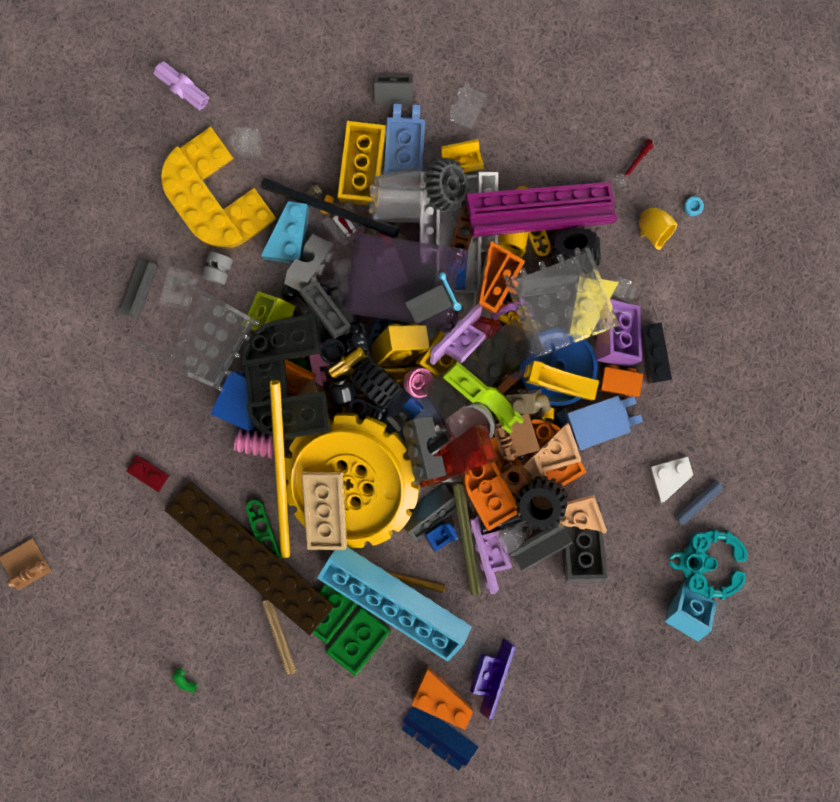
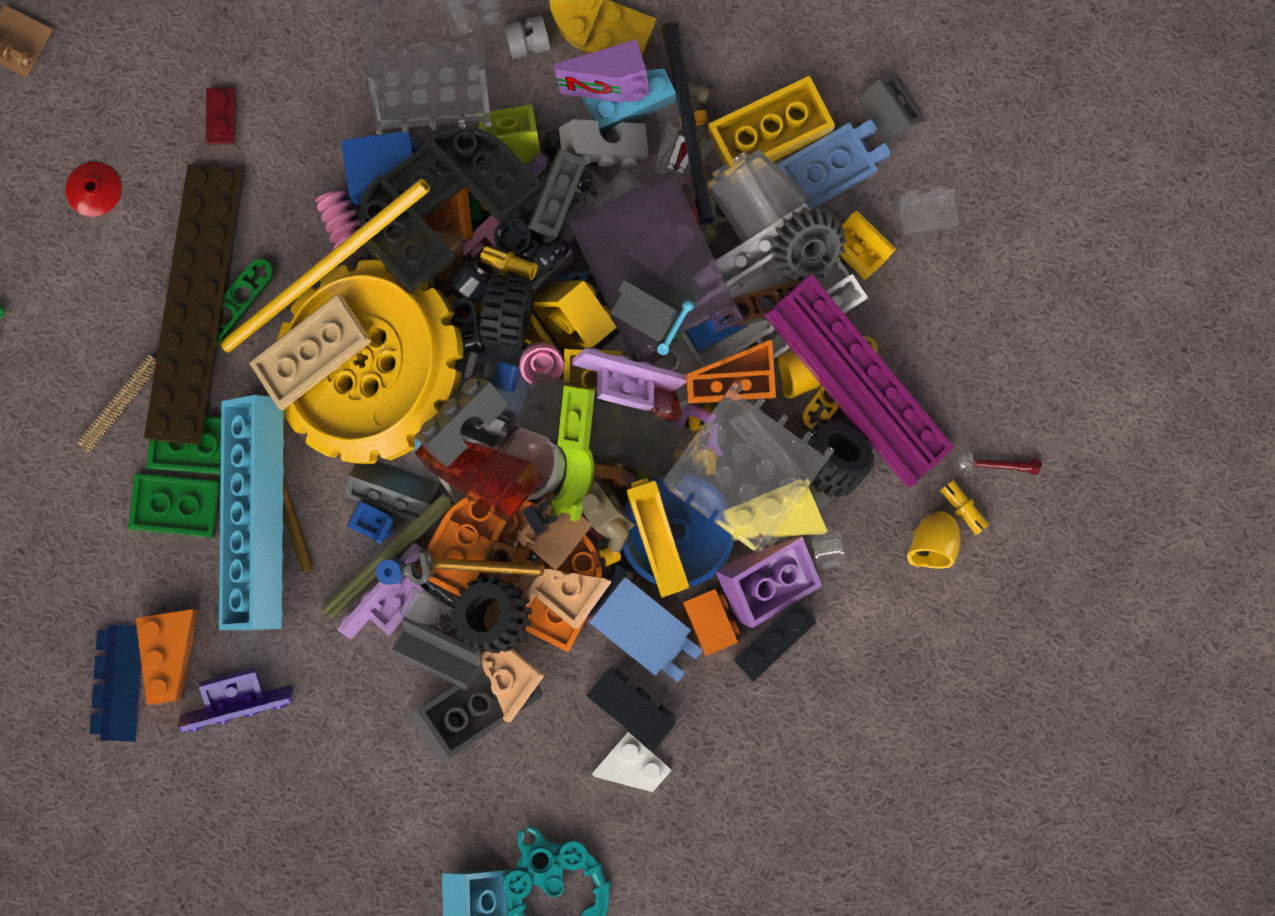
camera: 55 degrees right, 5 degrees down
(151, 569) = (102, 198): none -> red dish
(272, 235) = (607, 74): none -> medium lavender slope
(297, 309) = (538, 164): none -> lavender tile
(480, 541) = (394, 570): none -> leg
(508, 442) = (537, 520): none -> black tile
(515, 487) = (488, 566): none -> pearl gold bar
(640, 456) = (632, 708): none -> black brick
(646, 198) = (964, 507): none -> yellow pin
(693, 206) = (994, 573): medium azure tile -> none
(699, 502) = (622, 823): sand blue axle -> none

